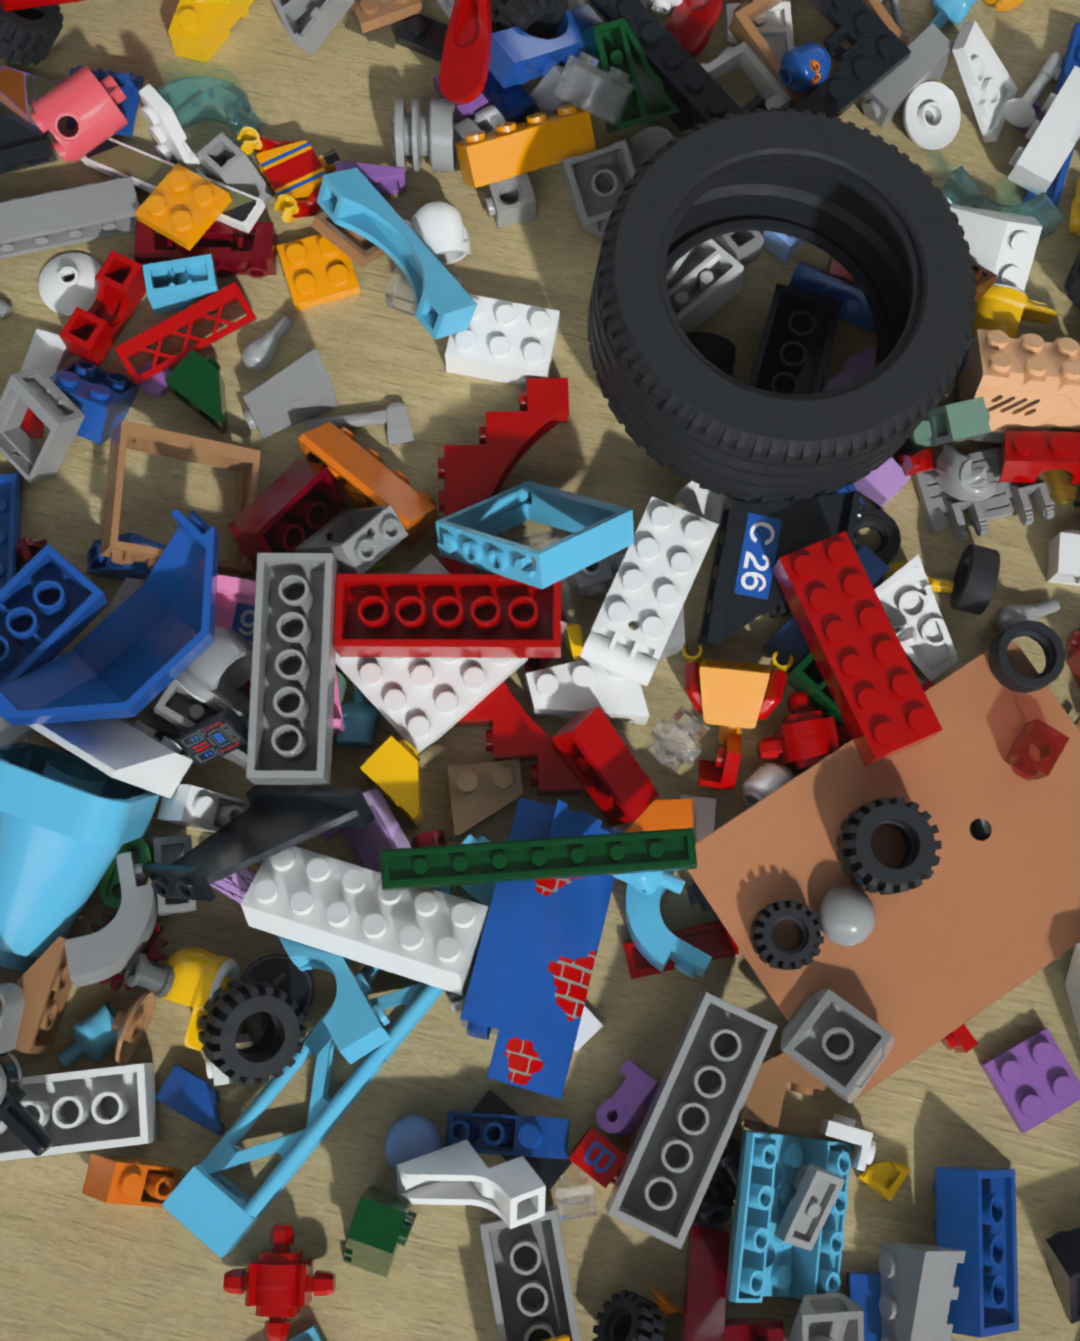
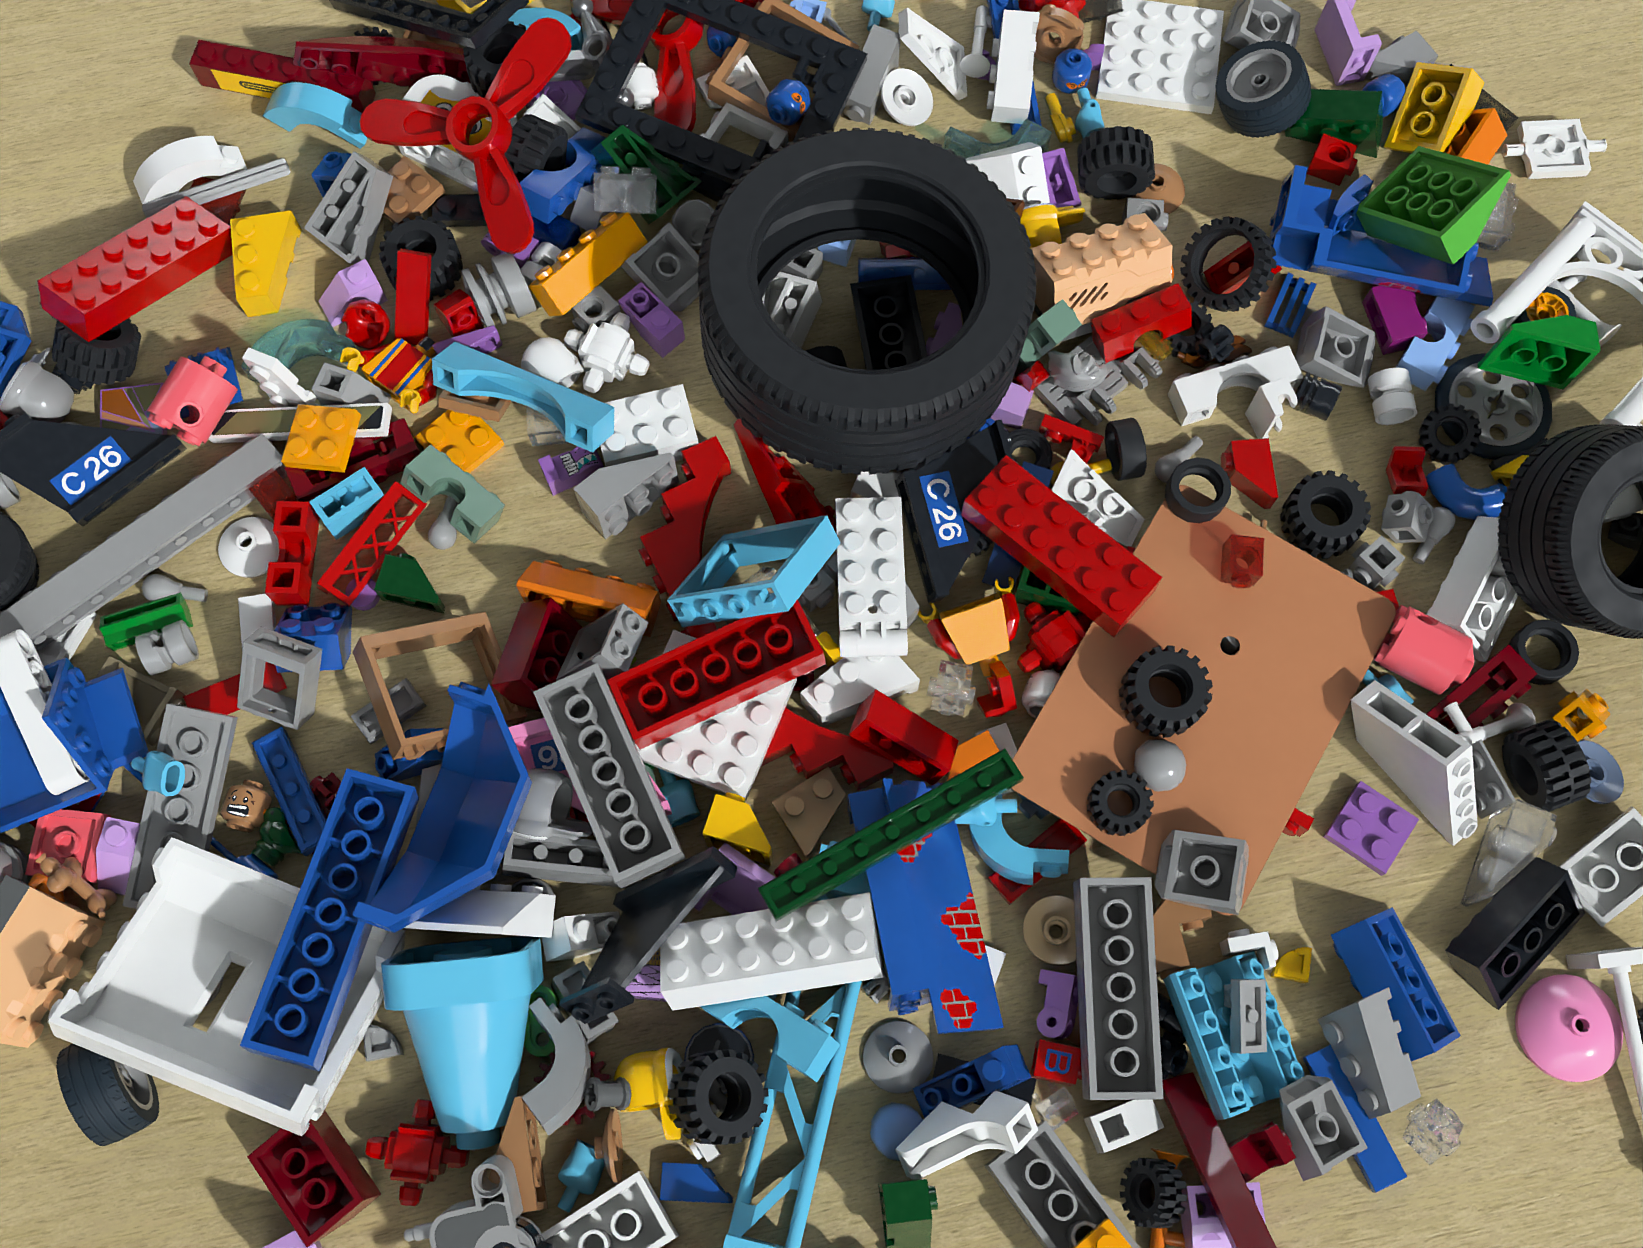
camera: 20 degrees left, 5 degrees down
(116, 237) = (271, 490): none -> clear red brick
(138, 504) = (405, 702): none -> light grey tile
(213, 737) = (567, 865): black tile -> none
(276, 292) = (436, 474): none -> sand green arch
(283, 111) = (366, 323): none -> red hair
(284, 75) = (348, 286): none -> lavender slope
(290, 396) = (489, 555): light grey slope -> none
(338, 102) = (412, 295): none -> red tile
(360, 47) = (424, 237): none -> black tyre
(375, 141) = (458, 313): none -> red slope
(396, 417) = (584, 532): light grey piece -> none
(410, 346) = (569, 468): none -> medium lavender leg
(452, 392) = (625, 490): none -> light grey slope
(469, 1068) = (884, 1070): none -> light grey dish
(502, 245) = (606, 352): none -> white piece
(563, 232) = (653, 319): none -> medium lavender slope
(612, 460) = (783, 486): none -> red wedge
(632, 1251) = (1123, 1124): none -> white slope
(642, 1022) = (1041, 916): none -> tan dish
(936, 551) = (1083, 441): none -> red hinge
(1046, 270) = (1059, 179): none -> medium lavender slope

